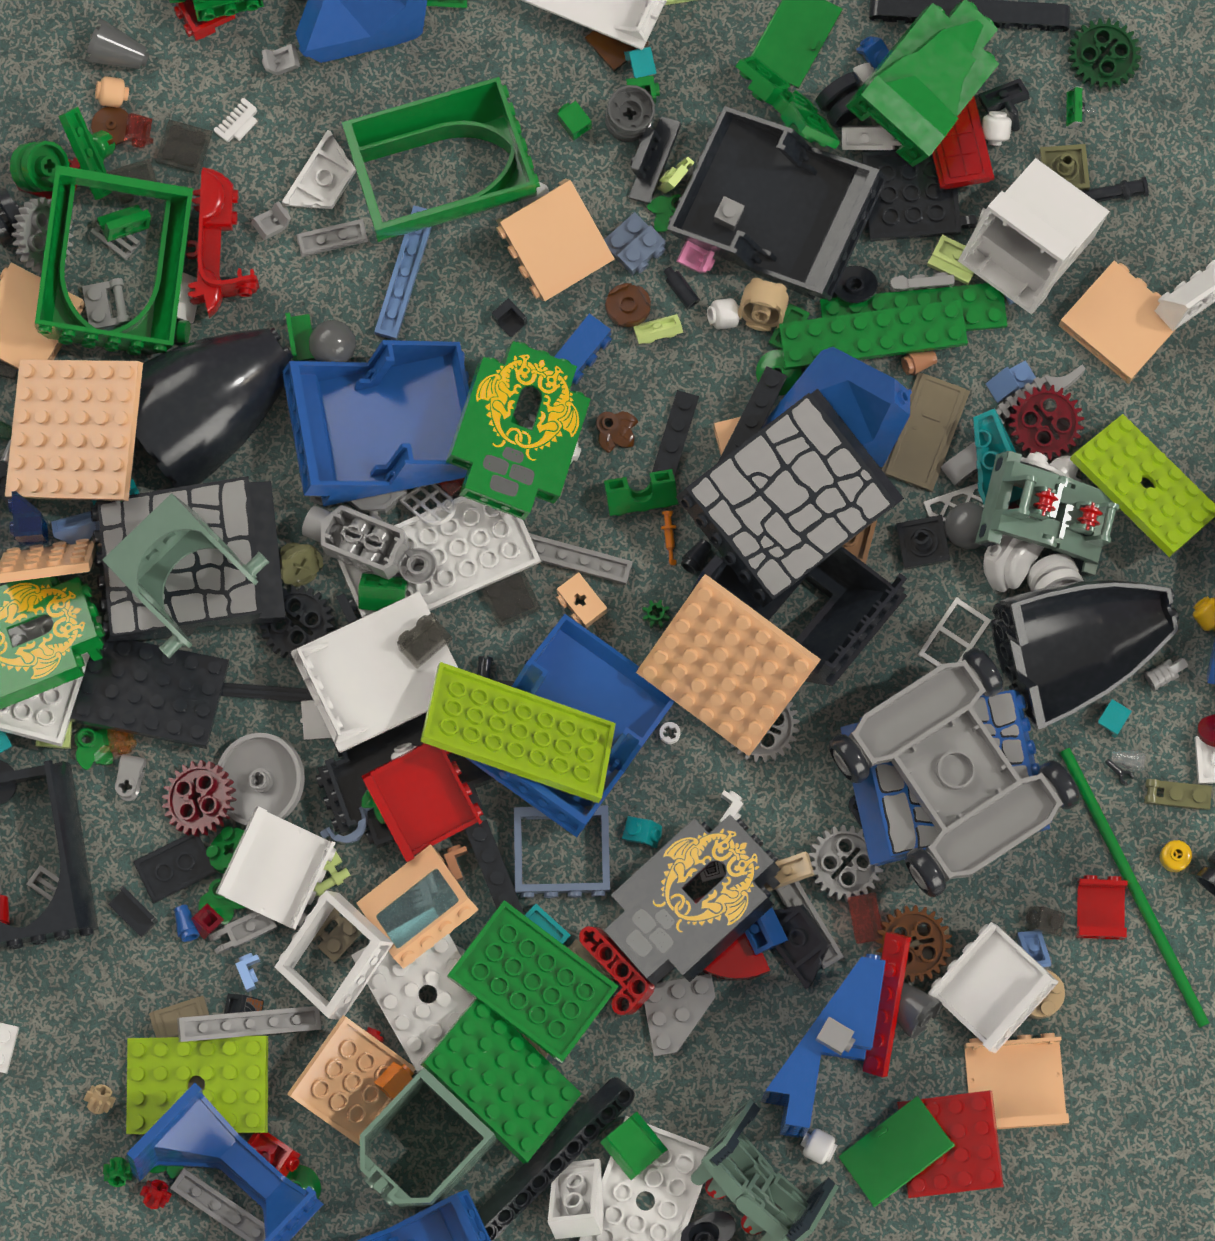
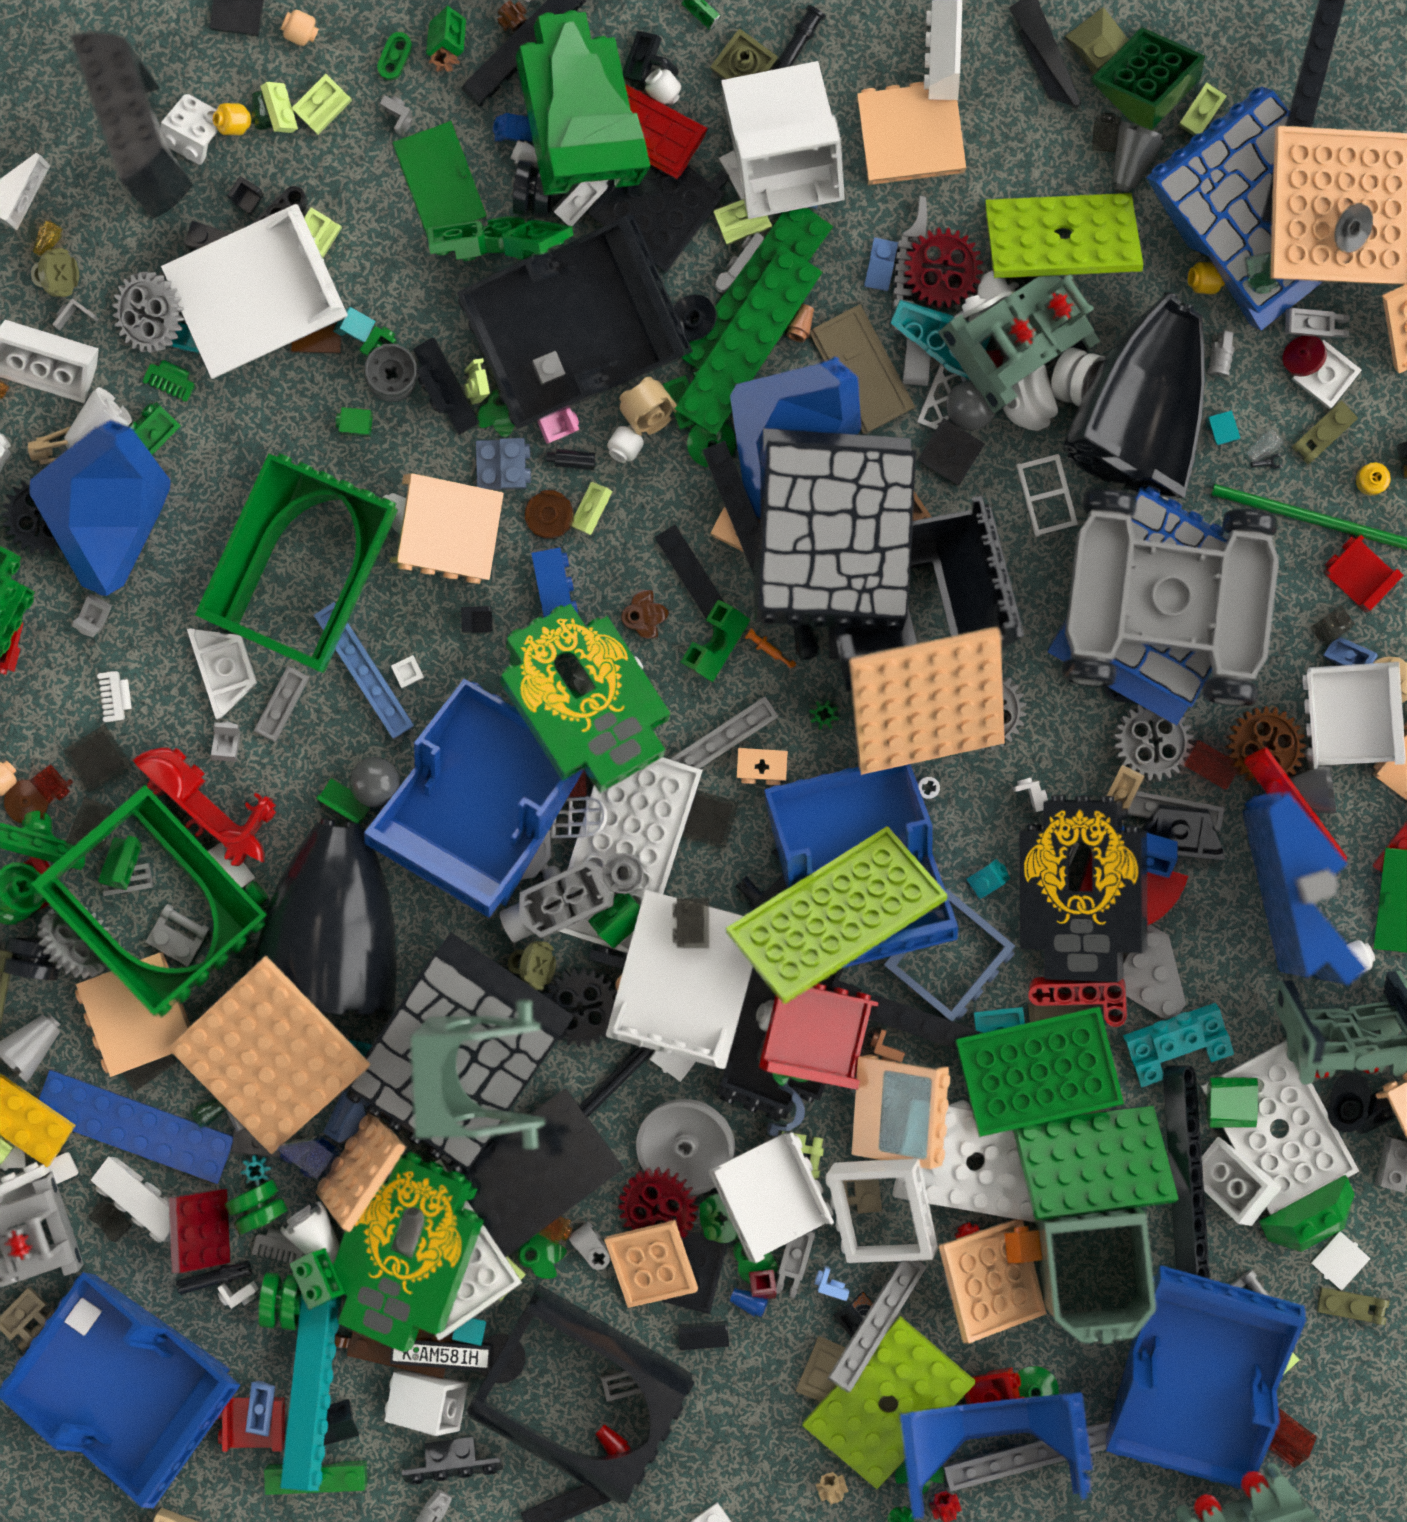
camera: 50 degrees left, 10 degrees up
(153, 827) = (651, 1264): none -> light nougat plate
(430, 302) = (407, 671): none -> white plate
(646, 1065) = (1176, 1038): none -> teal bracket

